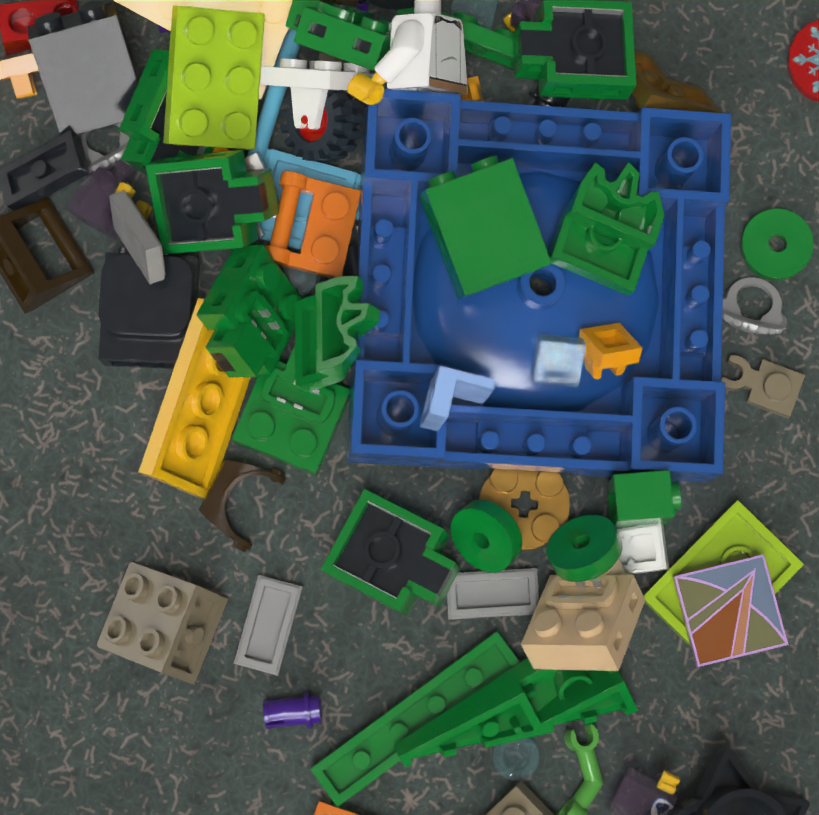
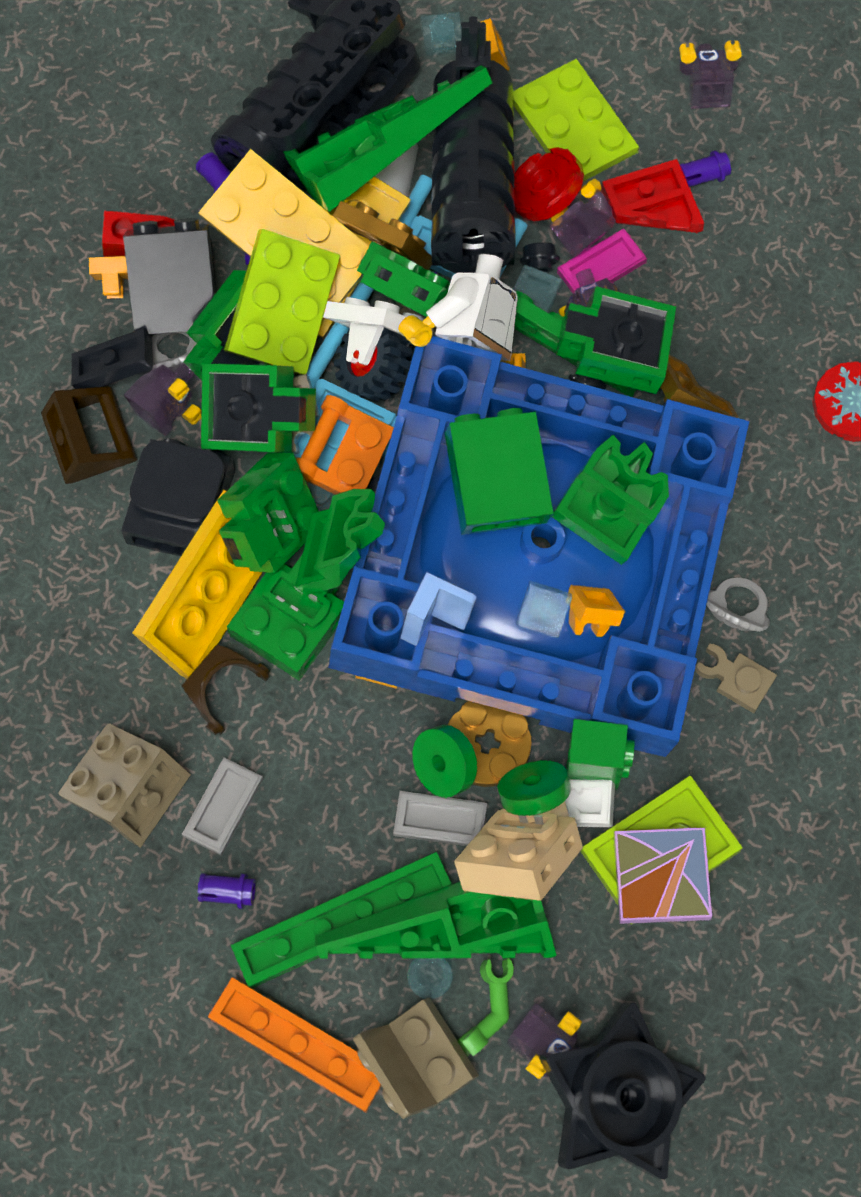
camera: 10 degrees right, 10 degrees down
(137, 236) = (181, 426): light grey tile -> none
(391, 555) = (351, 762): piece -> none
(782, 225) = (770, 571): green piece -> none

